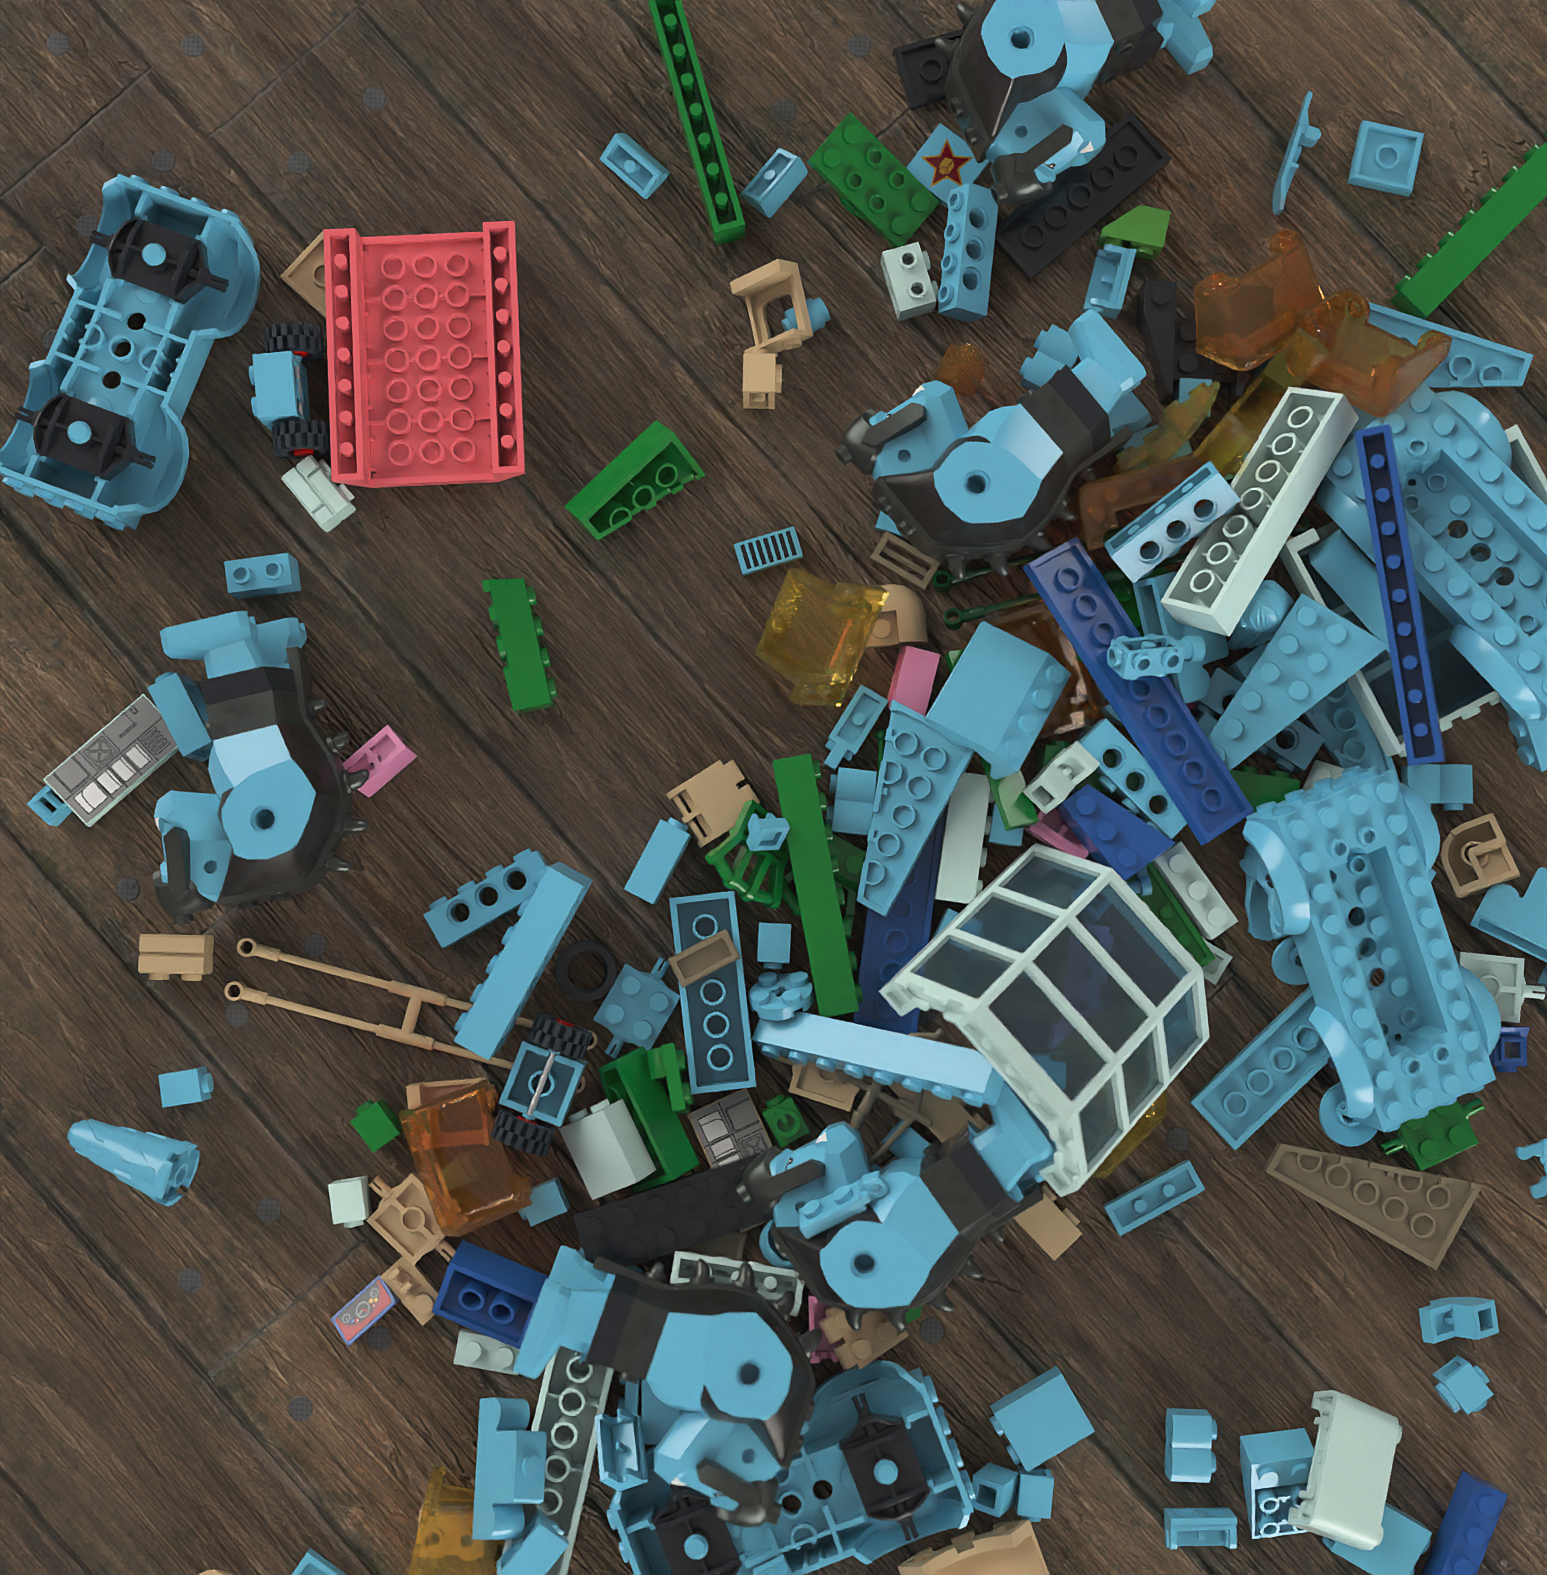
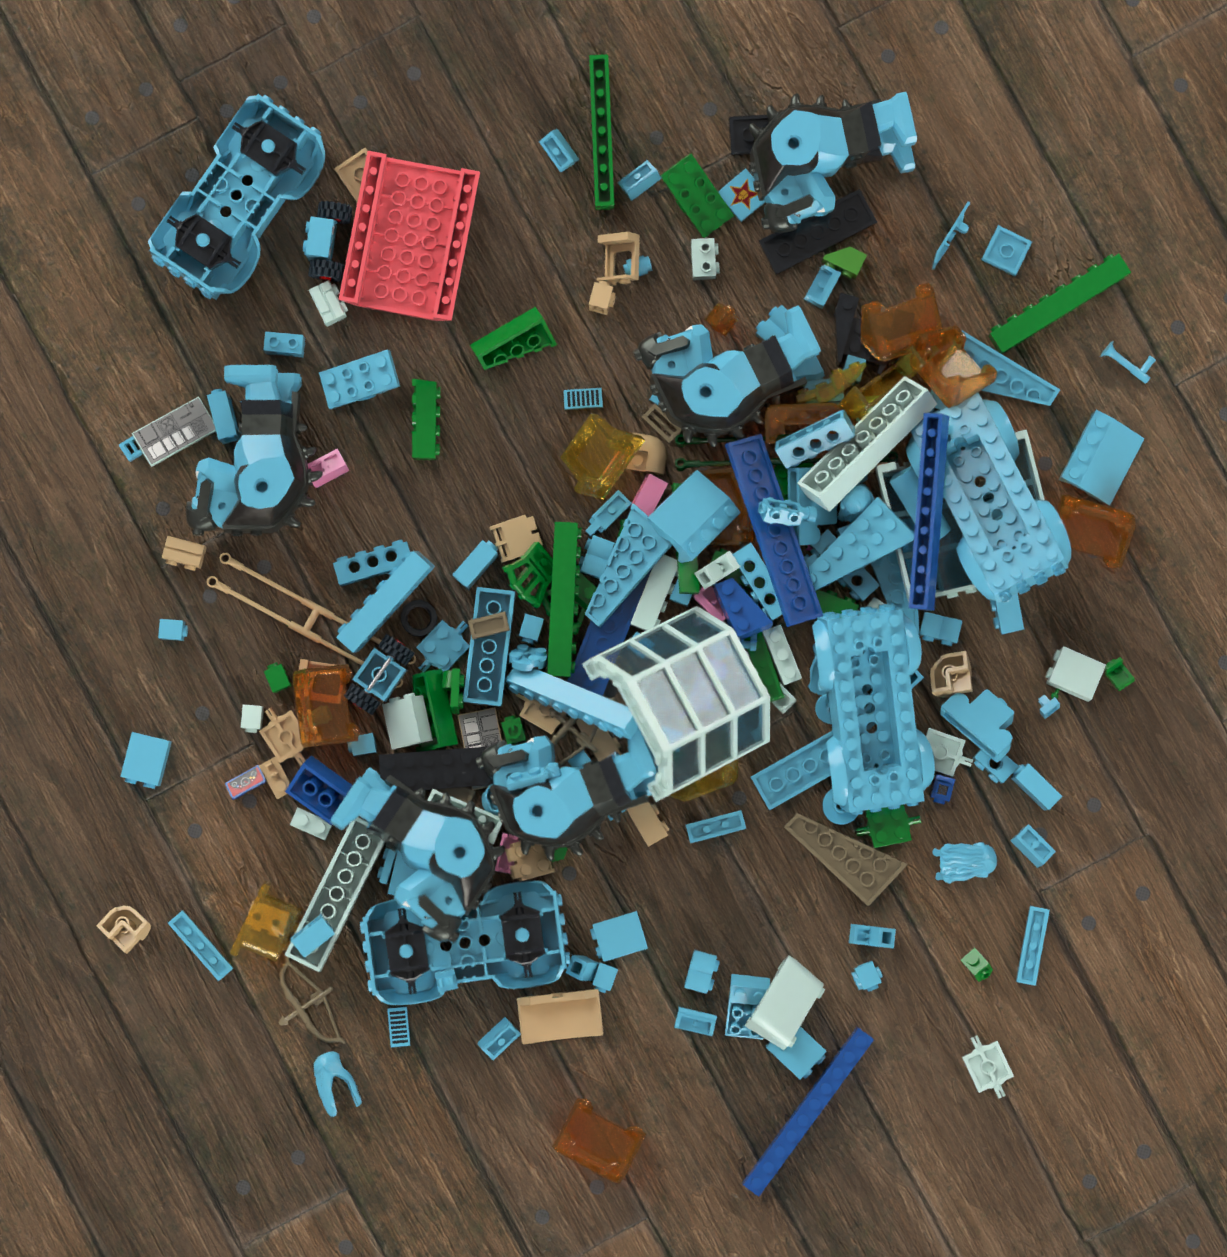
camera: 15 degrees right, 0 degrees up
(138, 1158) = (139, 665): medium azure cone -> none
(190, 1313) = (145, 760): none -> medium azure brick
(398, 604) = (359, 379): none -> medium azure plate
(507, 1469) = (308, 887): medium azure brick -> none
(621, 1450) = (376, 889): medium azure hinge -> none
(766, 833) = (541, 562): medium azure tile -> none
(968, 253) = (743, 261): medium azure brick -> none

